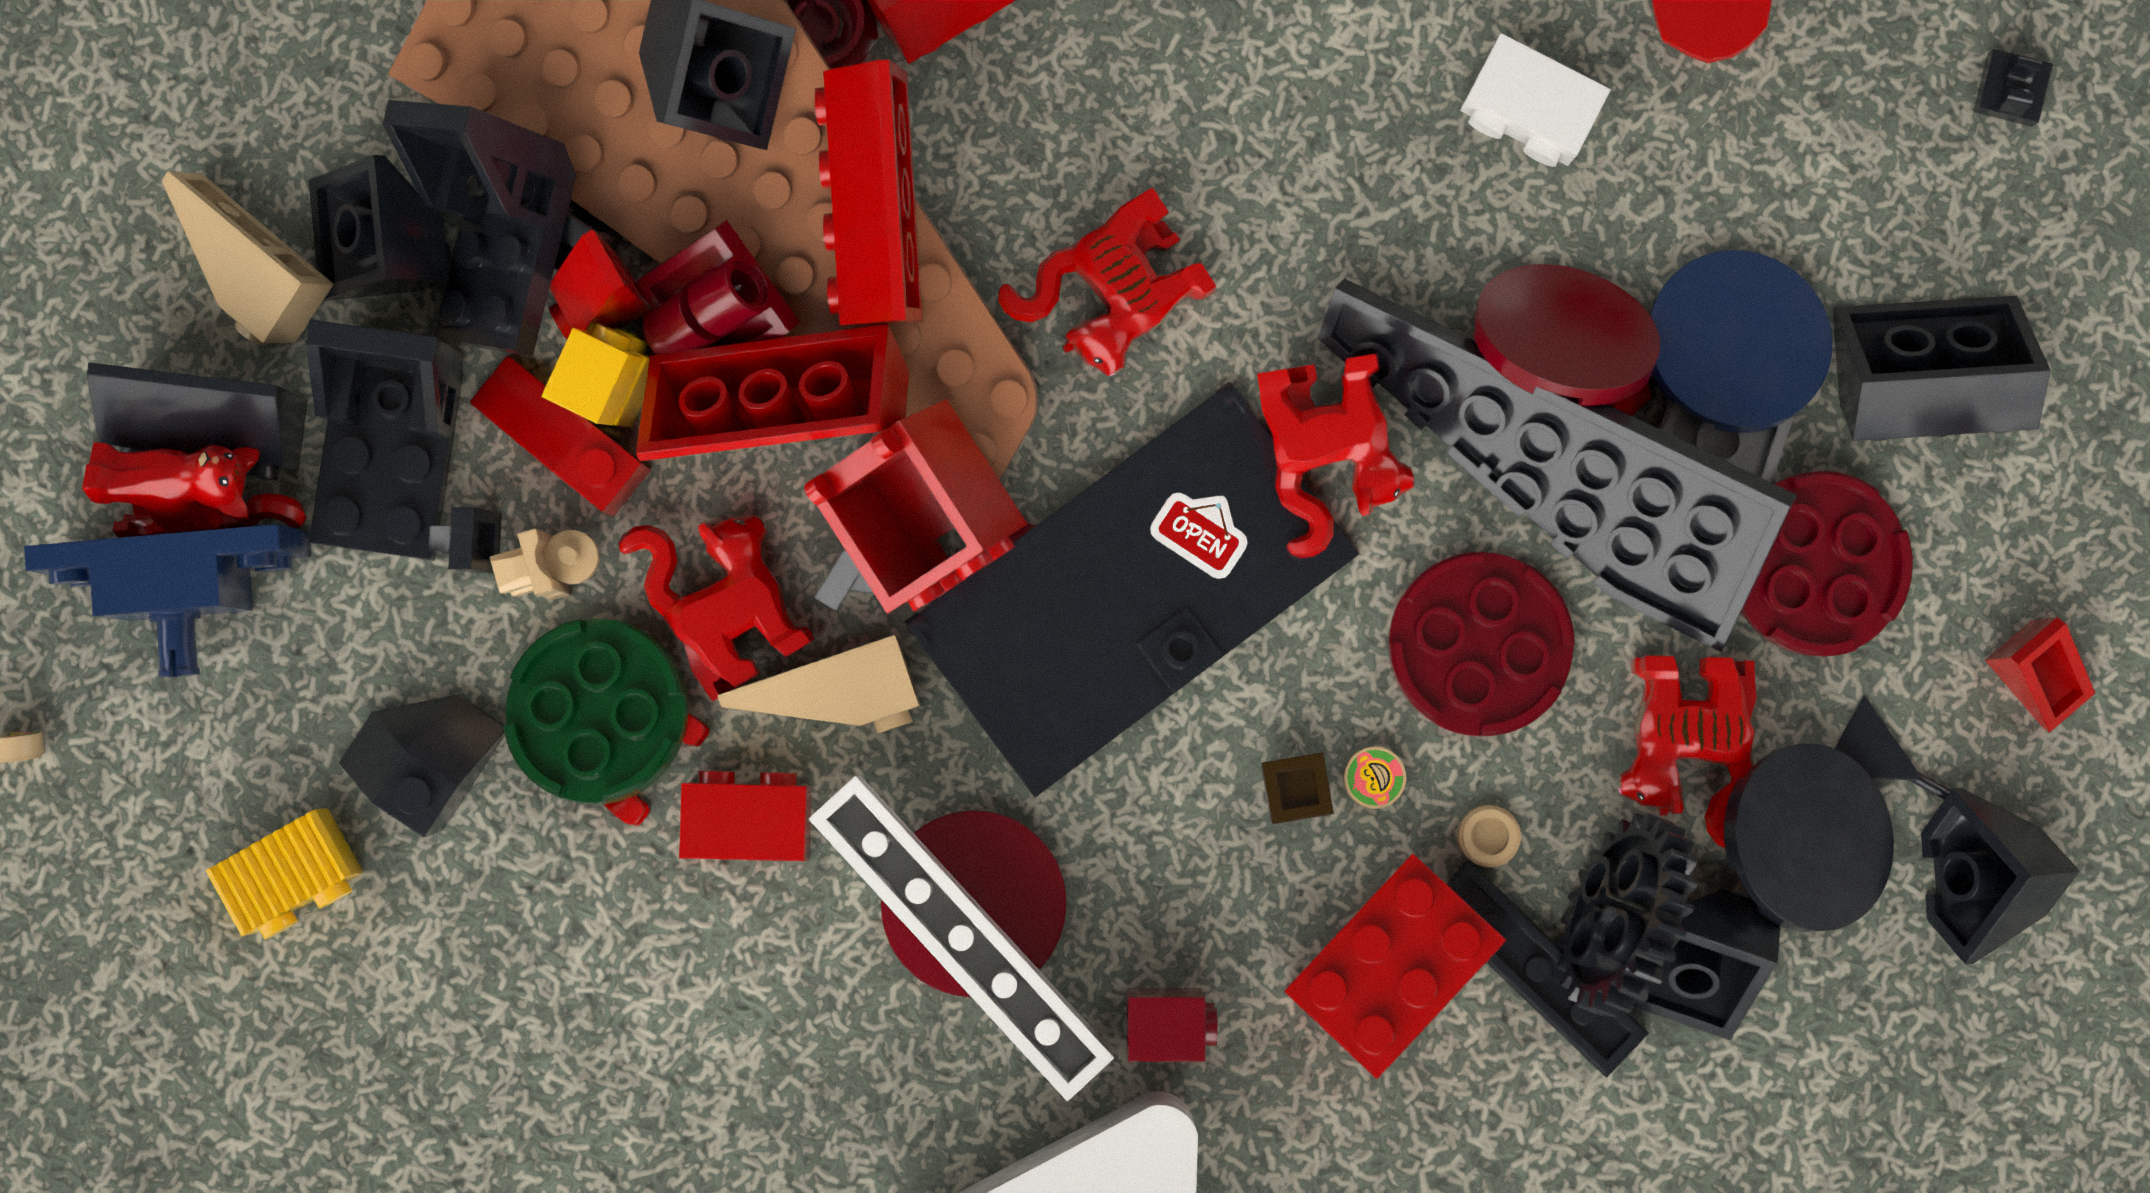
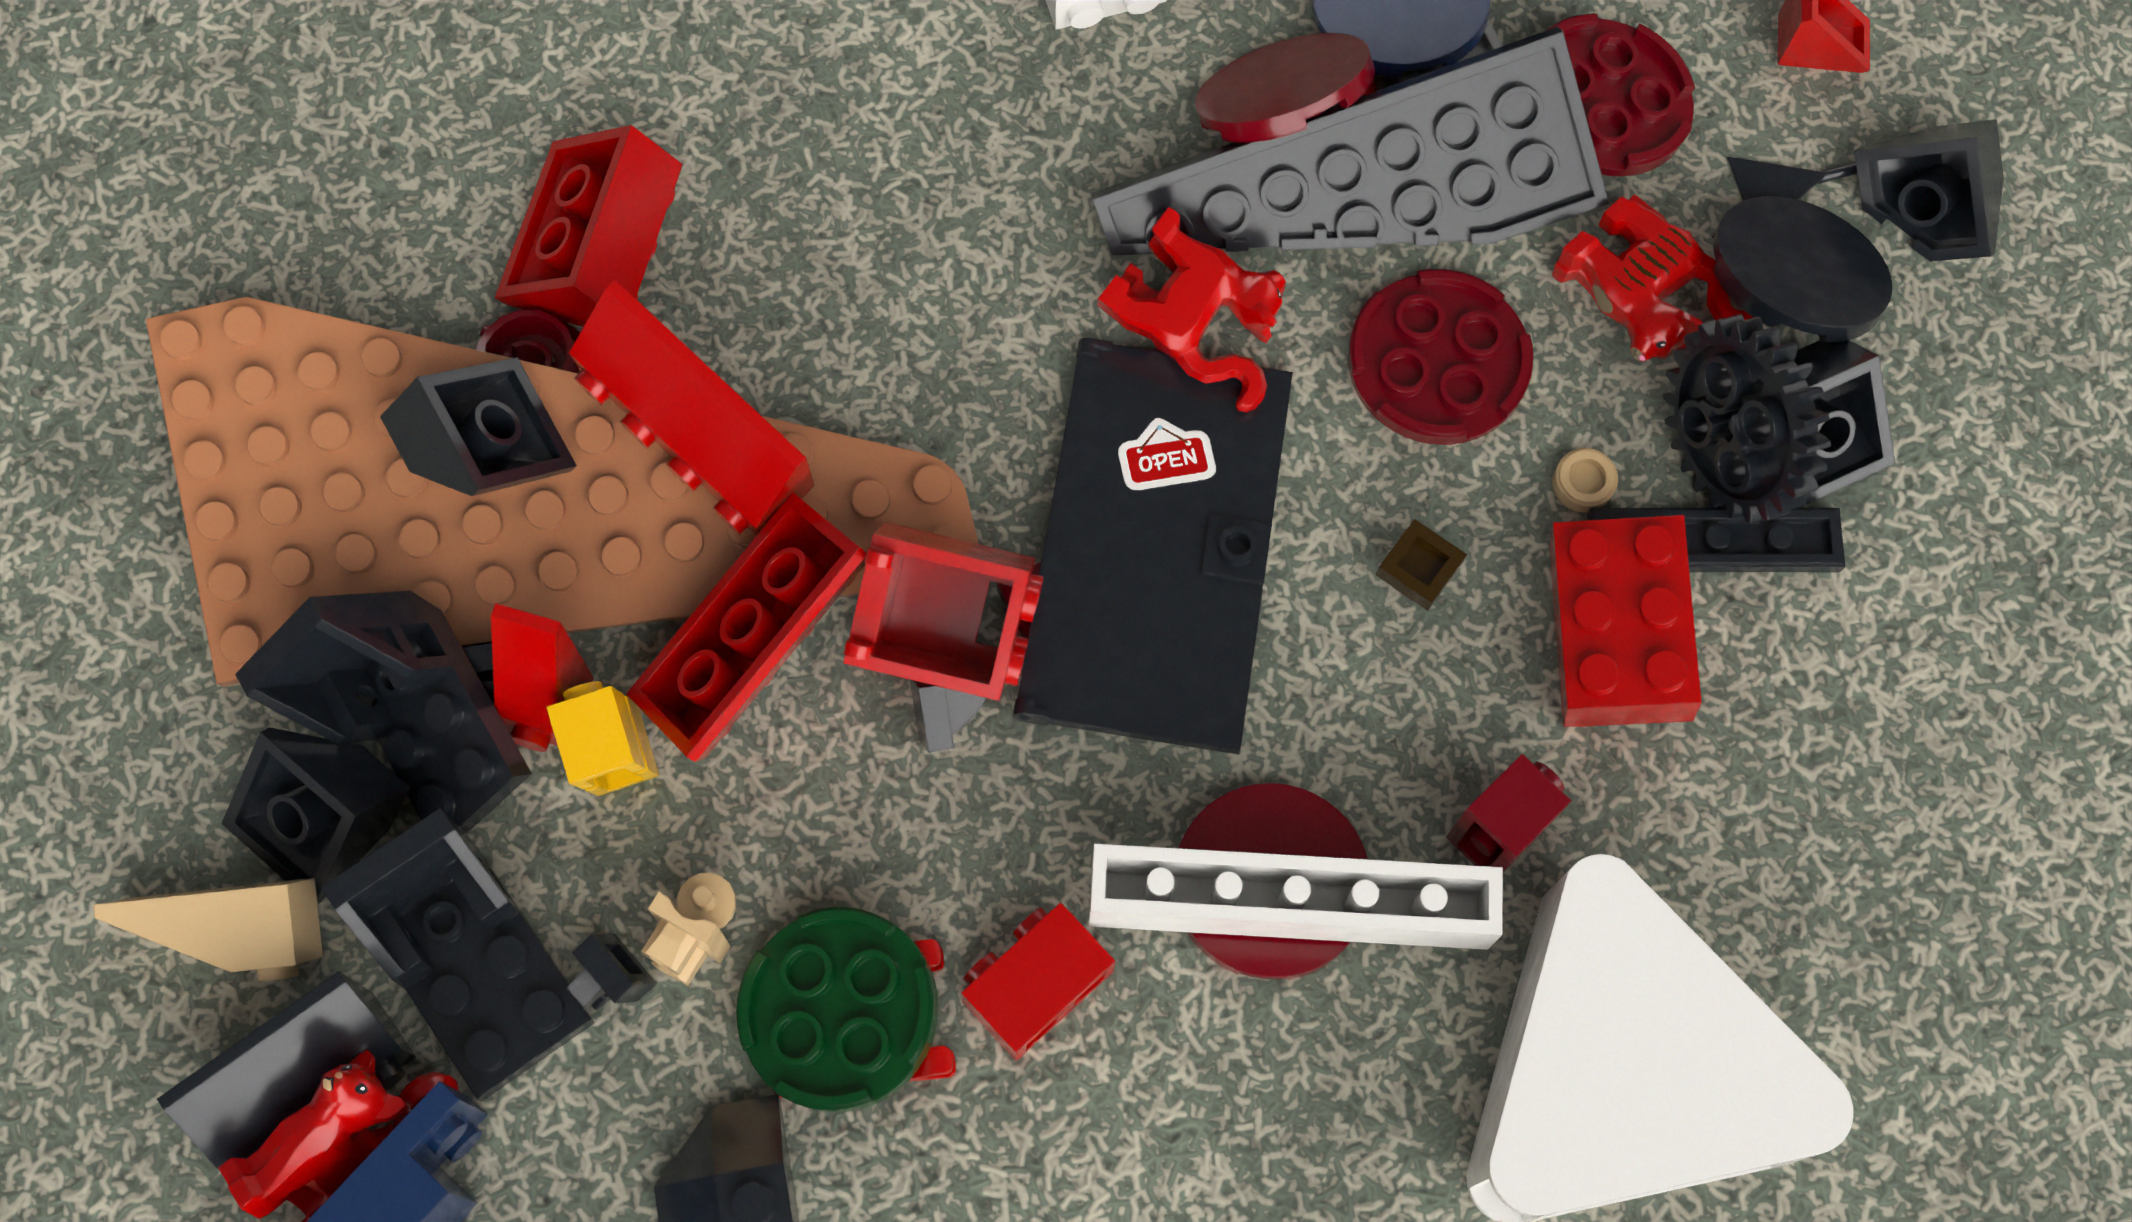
camera: 50 degrees left, 15 degrees down
(560, 438) = (611, 827): red slope -> none
(712, 297) = (634, 604): dark red plate -> none
(721, 612) = (862, 849): red animal -> none
(847, 688) = (1014, 813): tan slope -> none
(1121, 276) = (934, 333): red animal -> none
(1374, 777) = (1464, 514): tile -> none

